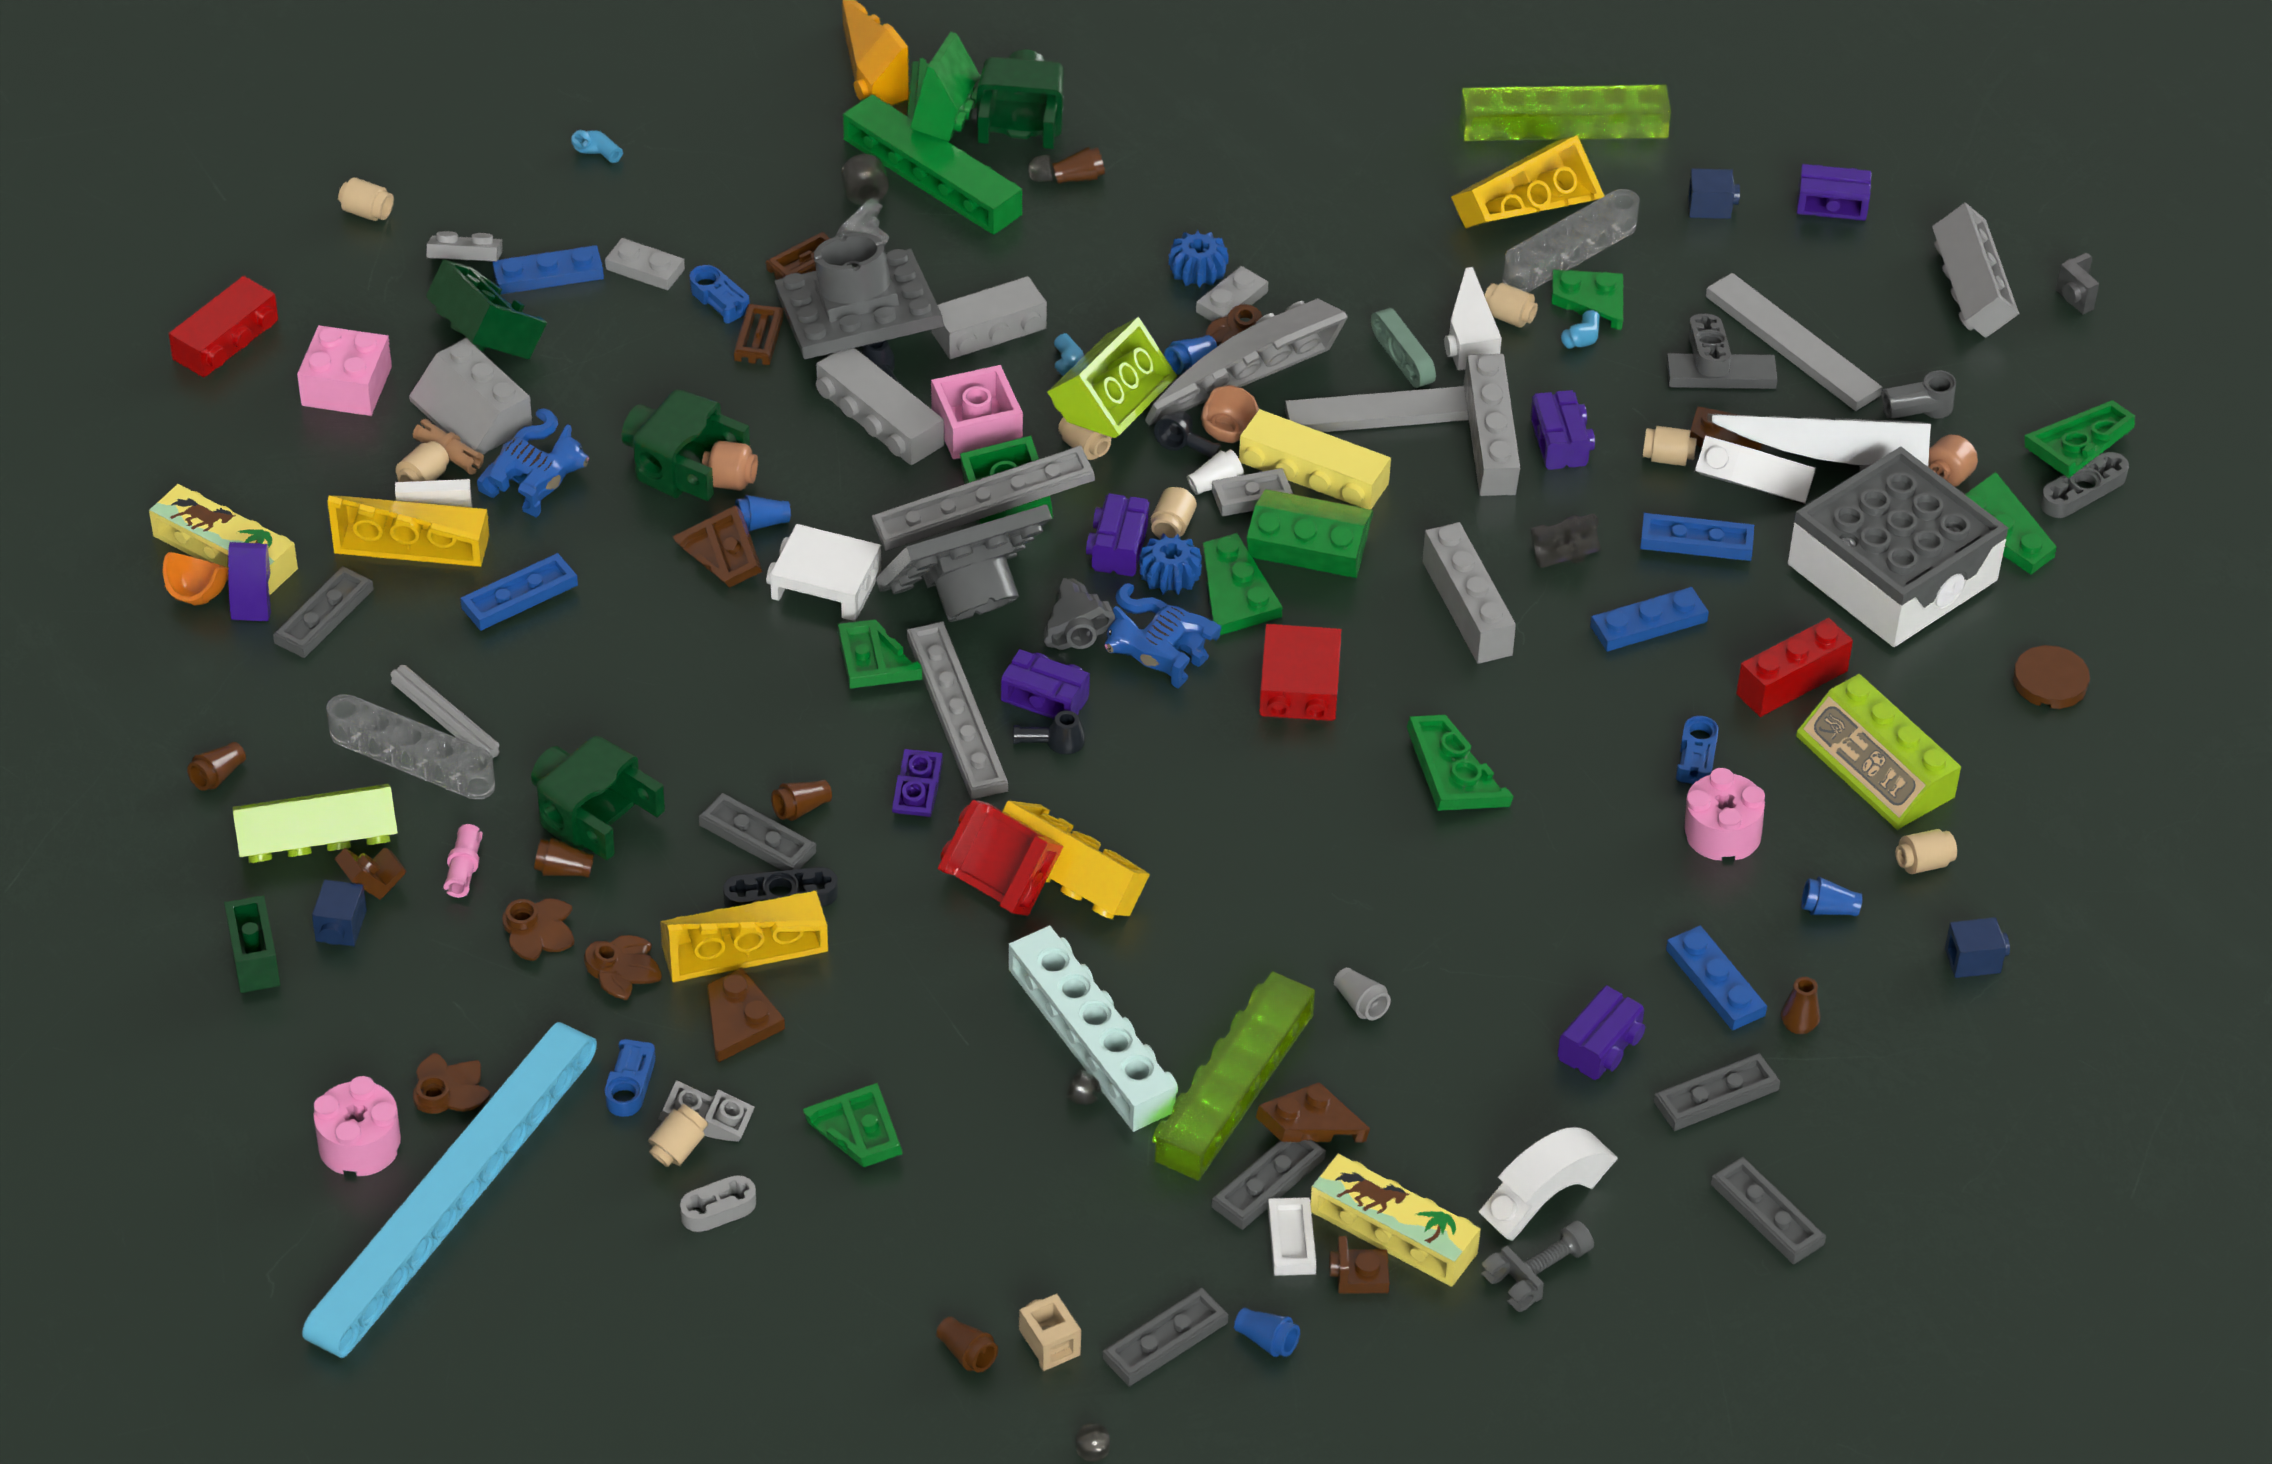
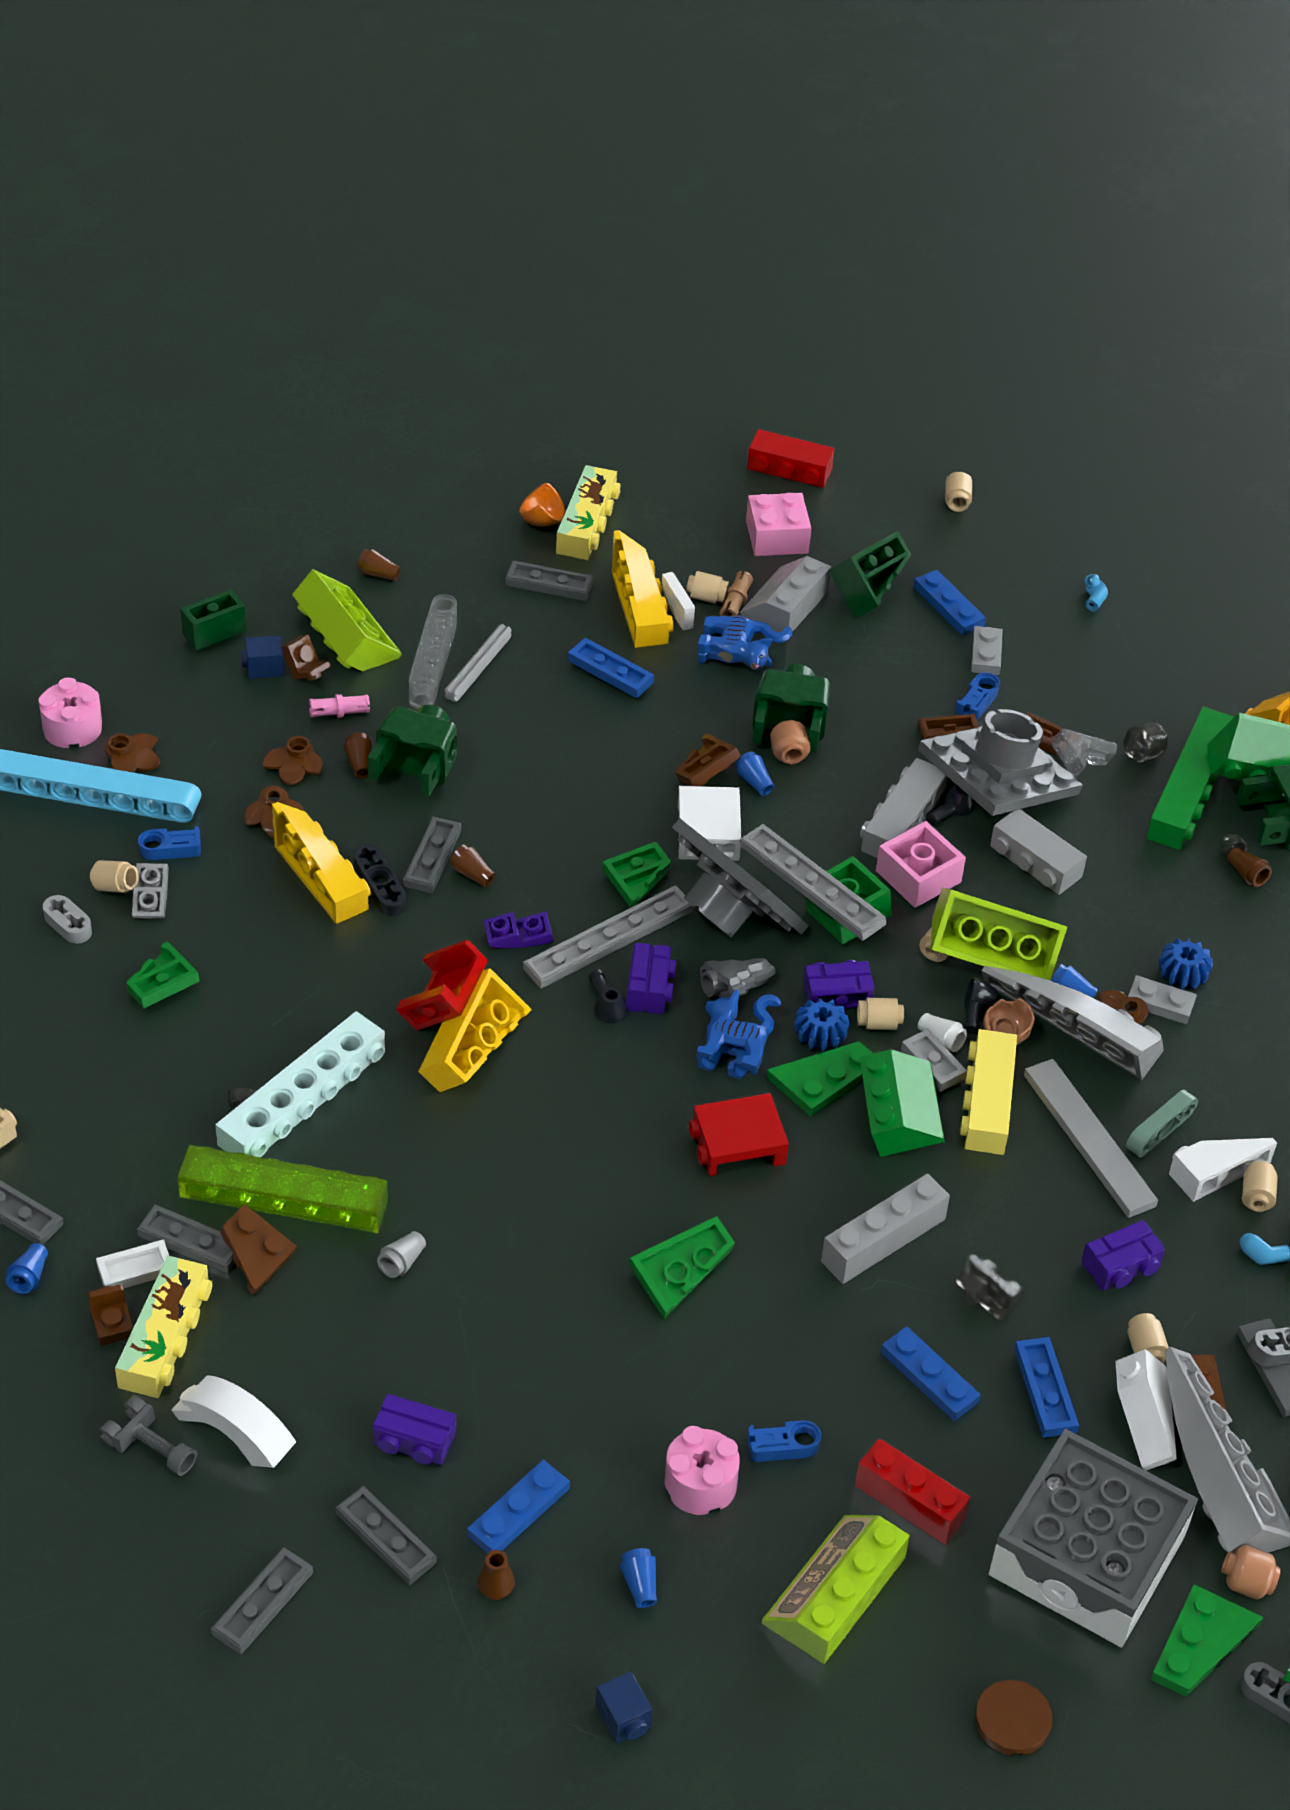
camera: 70 degrees right, 0 degrees up
(249, 581) = (541, 526): dark purple slope -> none
(478, 247) = (941, 552): light grey plate -> none
(740, 1014) = (251, 887): reddish brown wing -> none
(1069, 352) = (1038, 909): dark azure arm -> none
(1491, 424) = (1091, 1198): light grey brick -> none
(1926, 851) = (731, 1644): tan brick -> none

